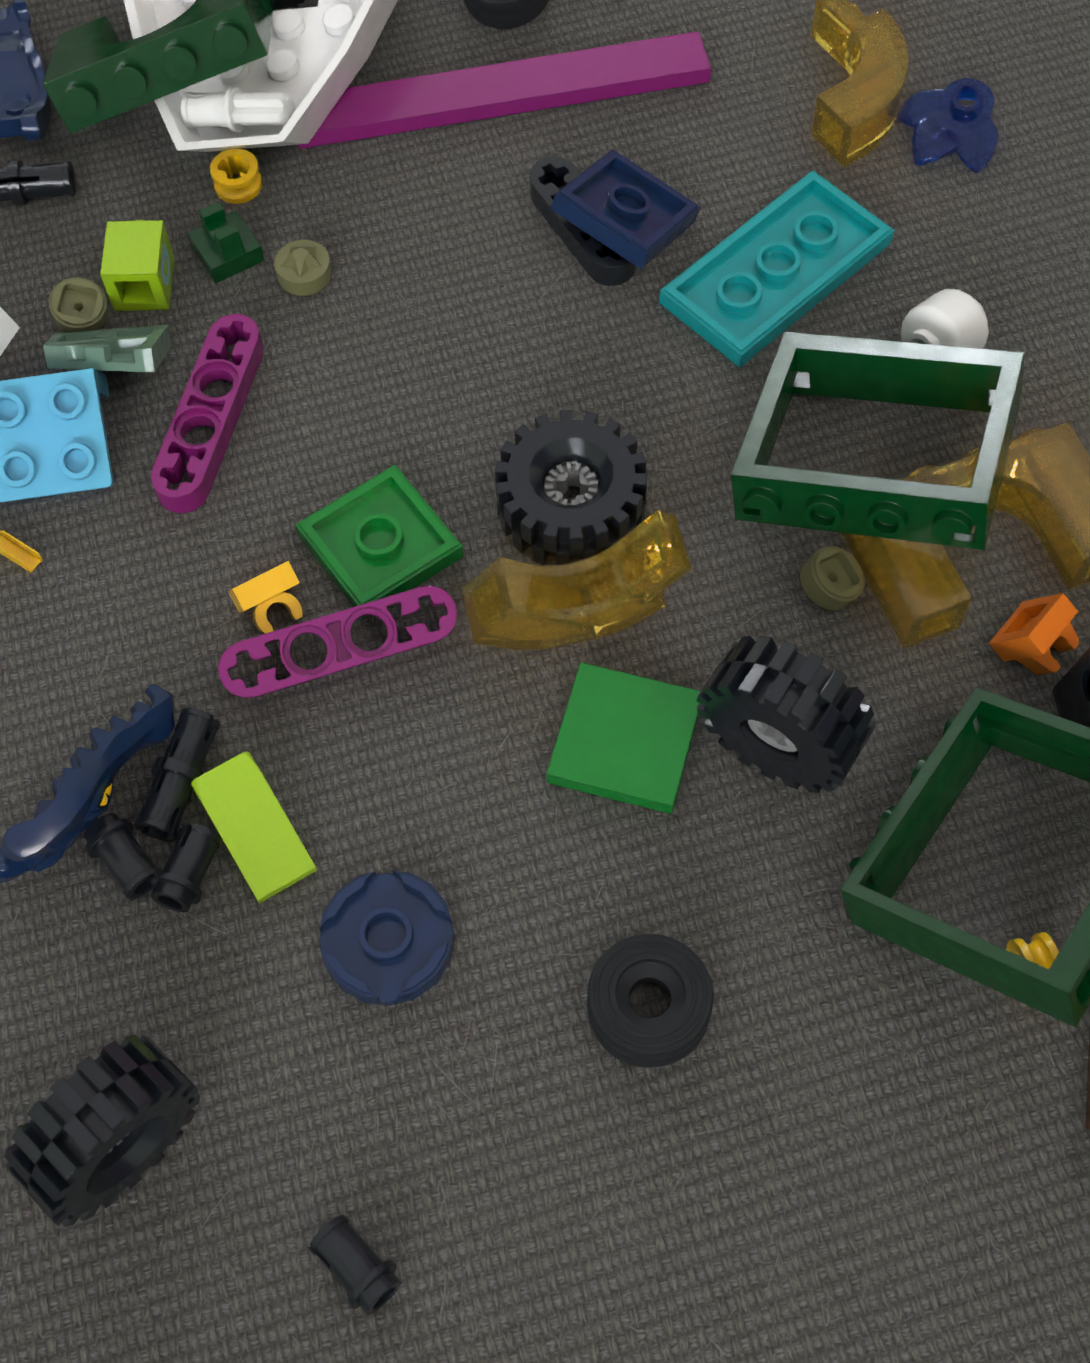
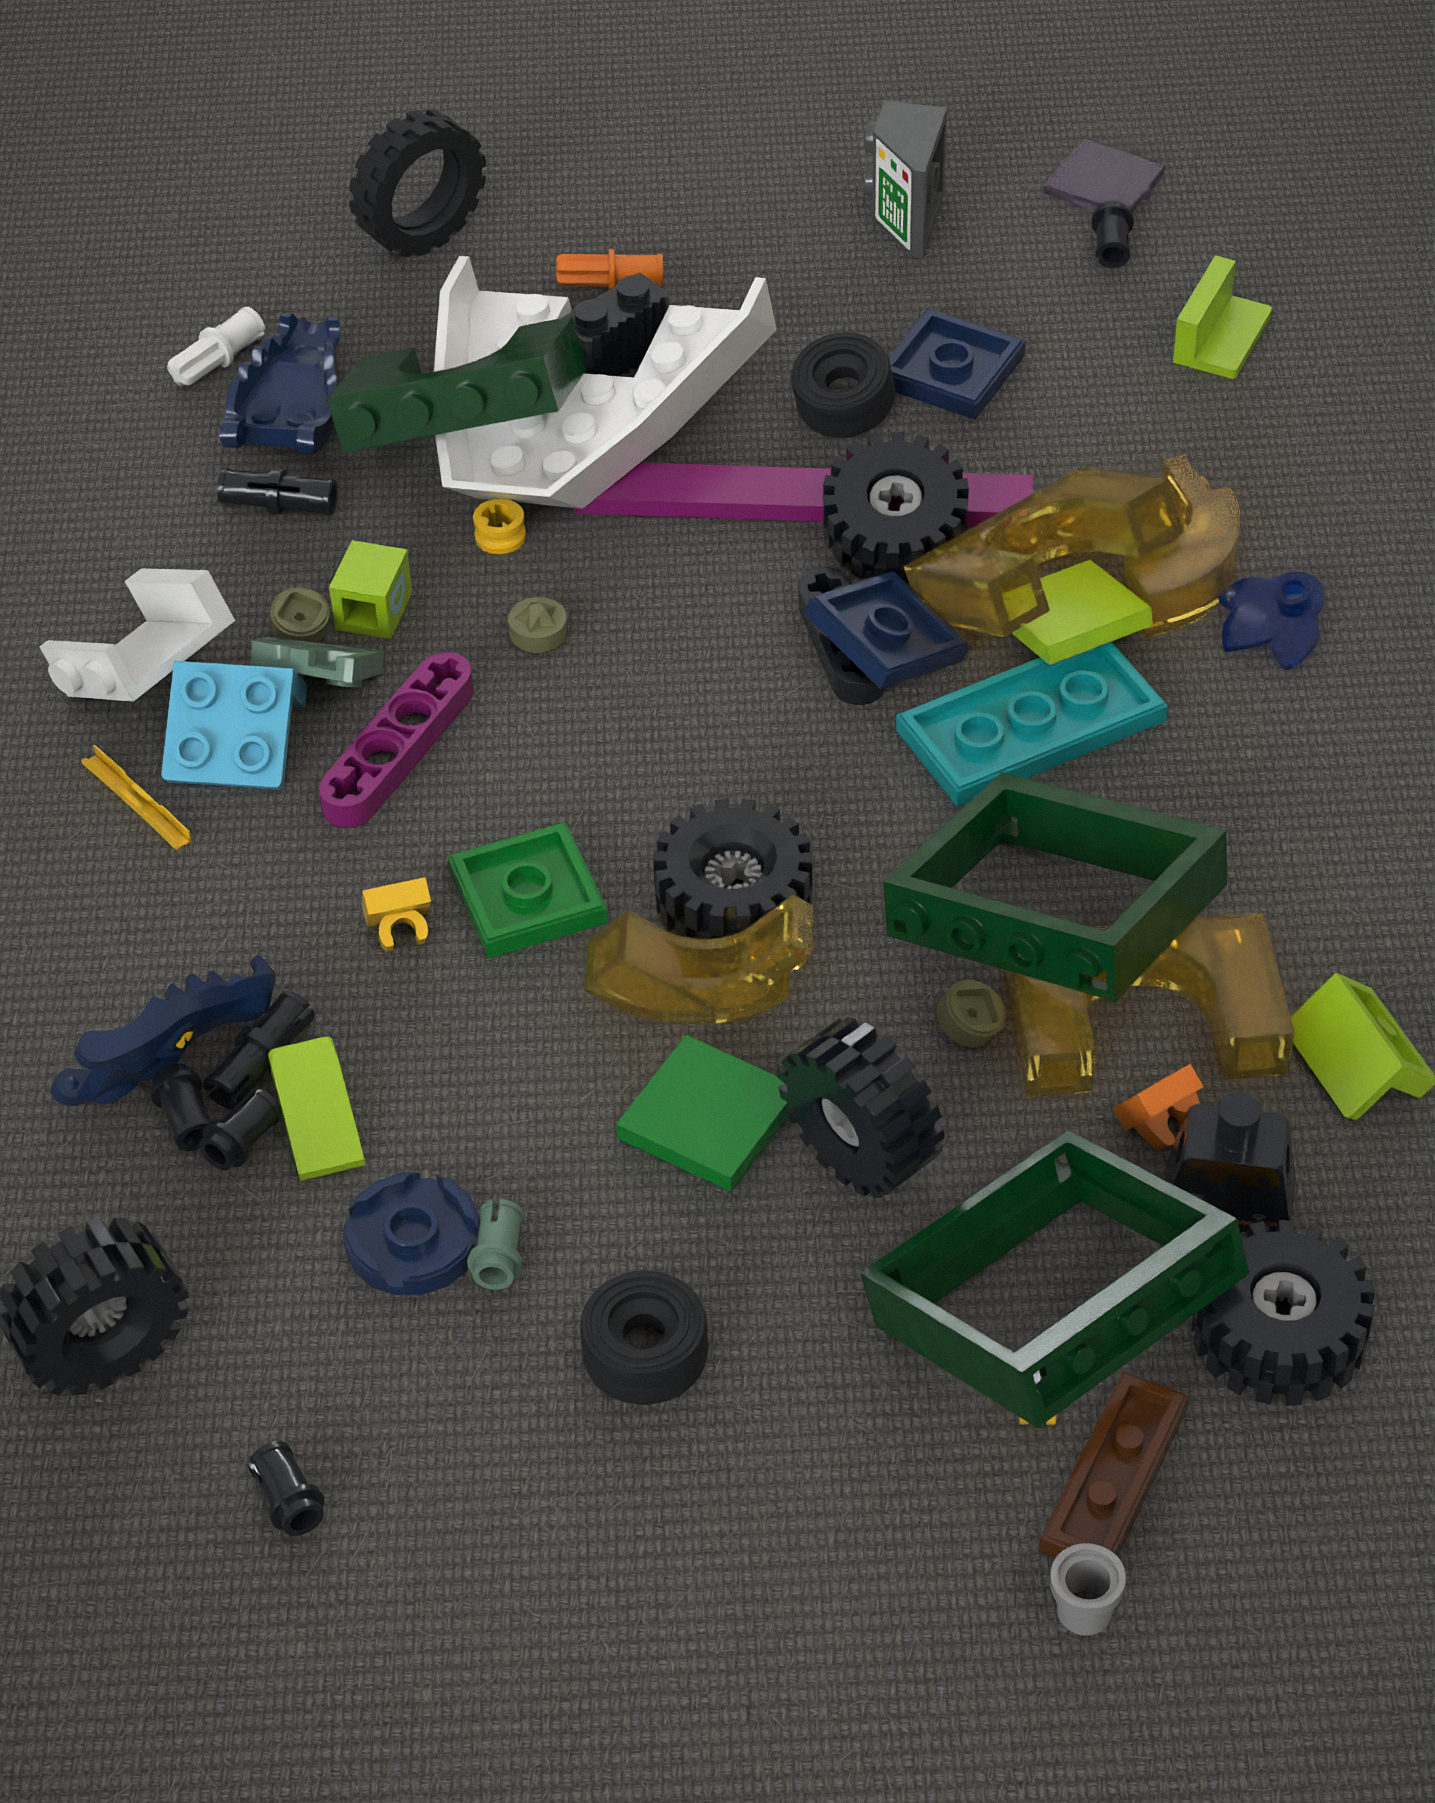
camera: 15 degrees right, 15 degrees down
(224, 243) = (465, 586): dark green tile -> none
(235, 109) = (512, 458): white axle -> none
(335, 632) = (453, 956): magenta beam -> none
(478, 949) = (496, 1256): none -> sand green pin
(566, 102) = (863, 486): none -> black bush
(695, 134) = (990, 573): none -> clear yellow arch
(779, 156) = (1084, 613): none -> lime tile
(947, 320) = (1183, 794): white head -> none

